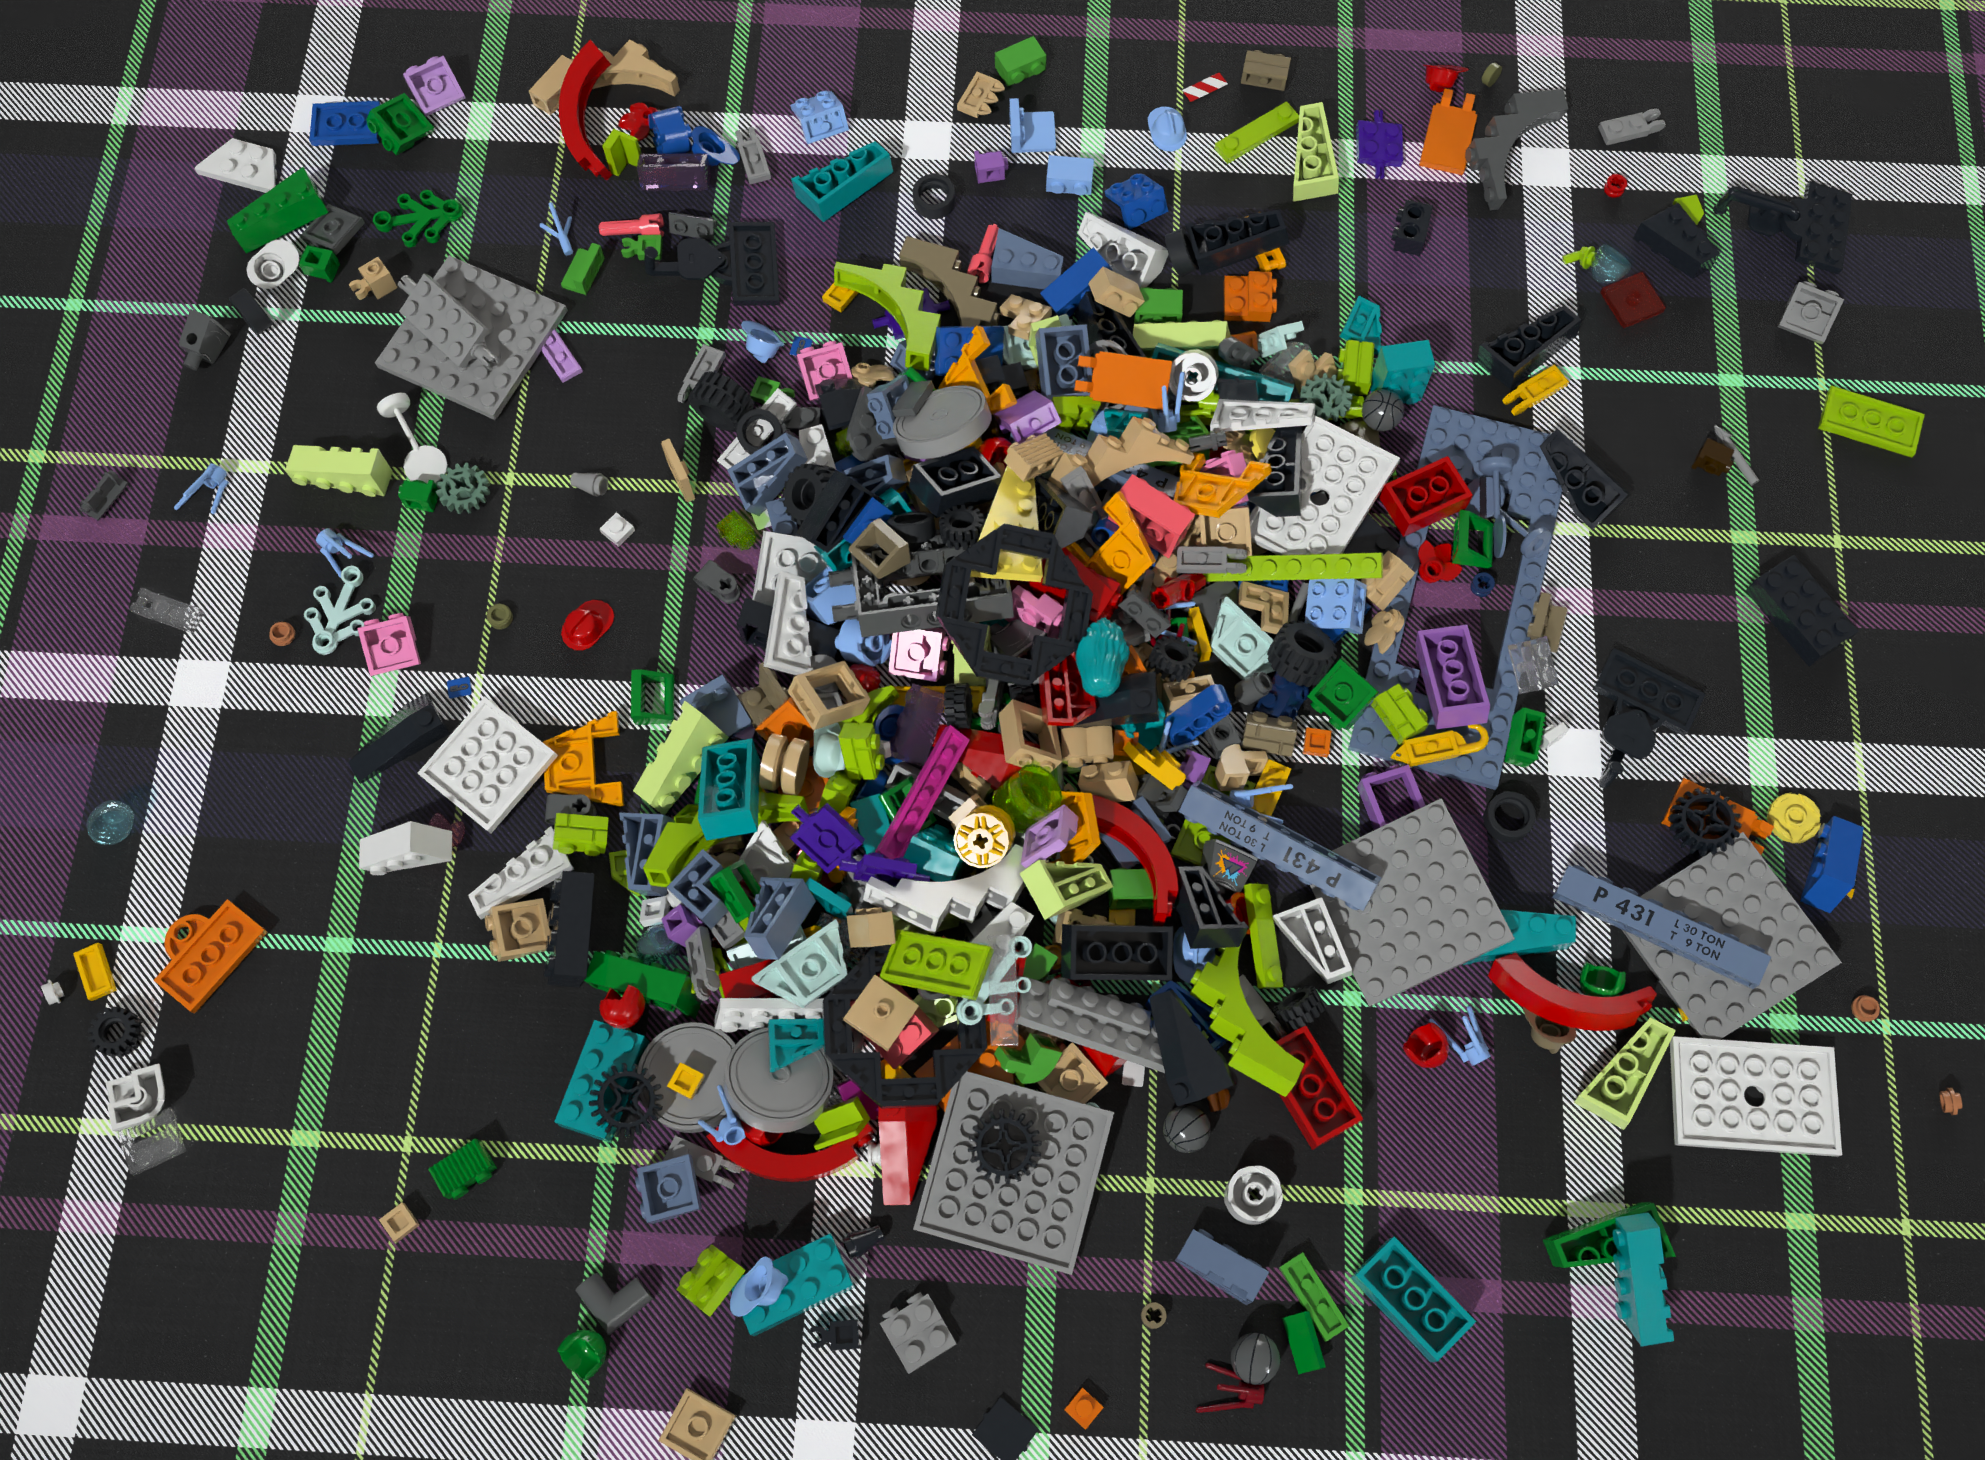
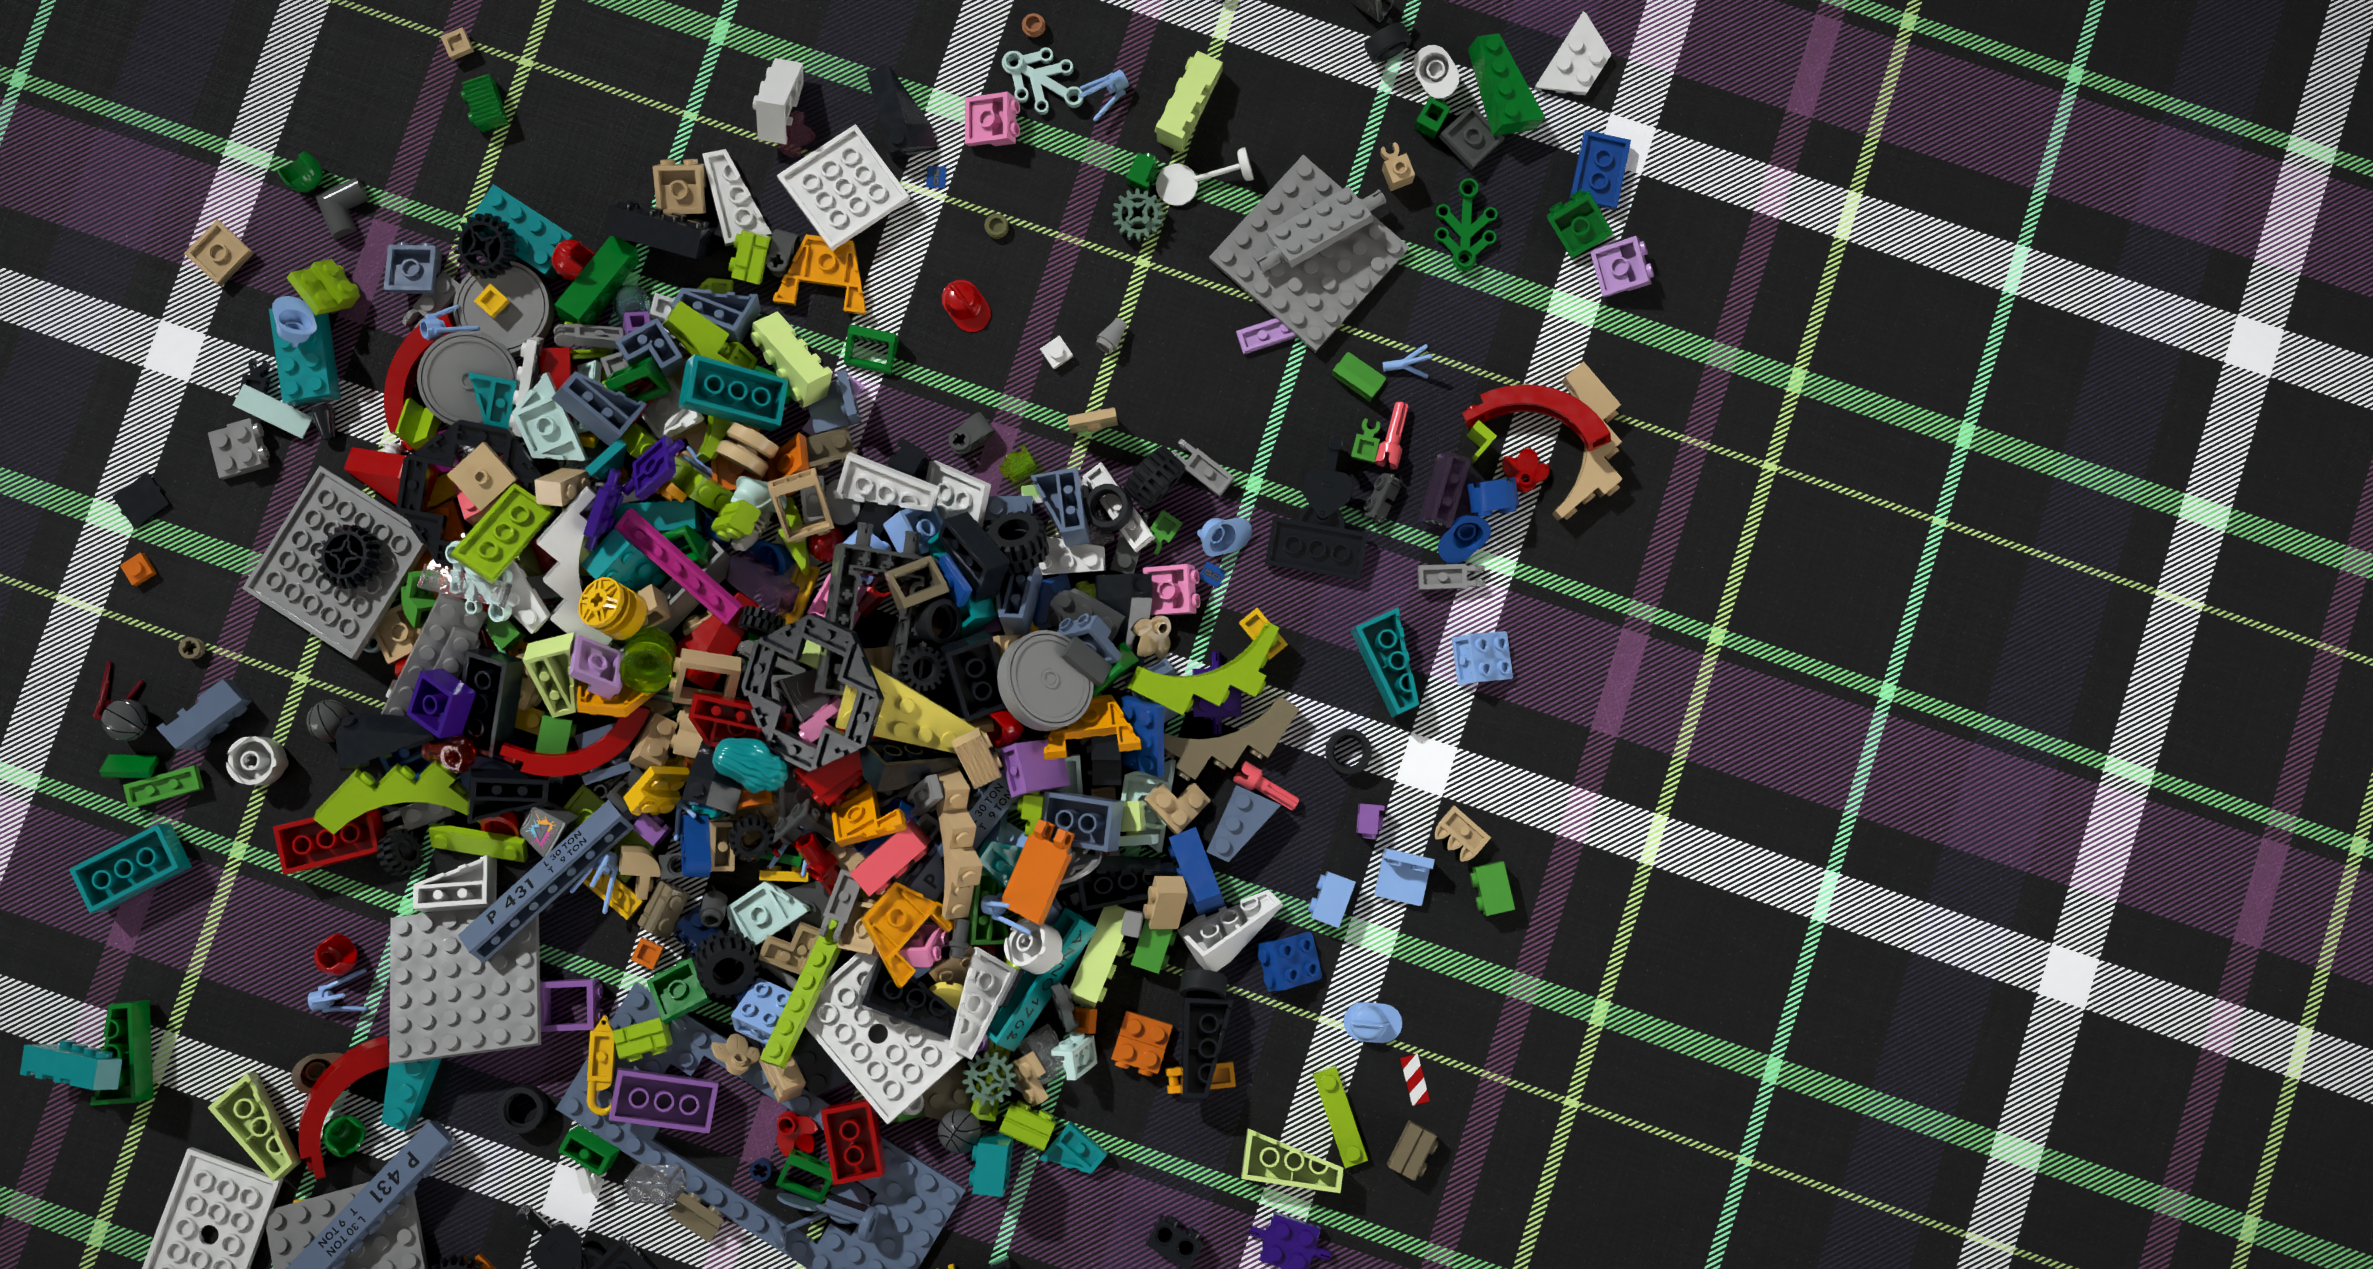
camera: 105 degrees right, 15 degrees up
(865, 1301) = (273, 411): none -> light aqua tile
(1133, 987) = (441, 703): none -> dark purple brick
(1144, 315) = (1132, 923): none -> light grey slope
(1182, 972) = (453, 754): none -> clear red connector

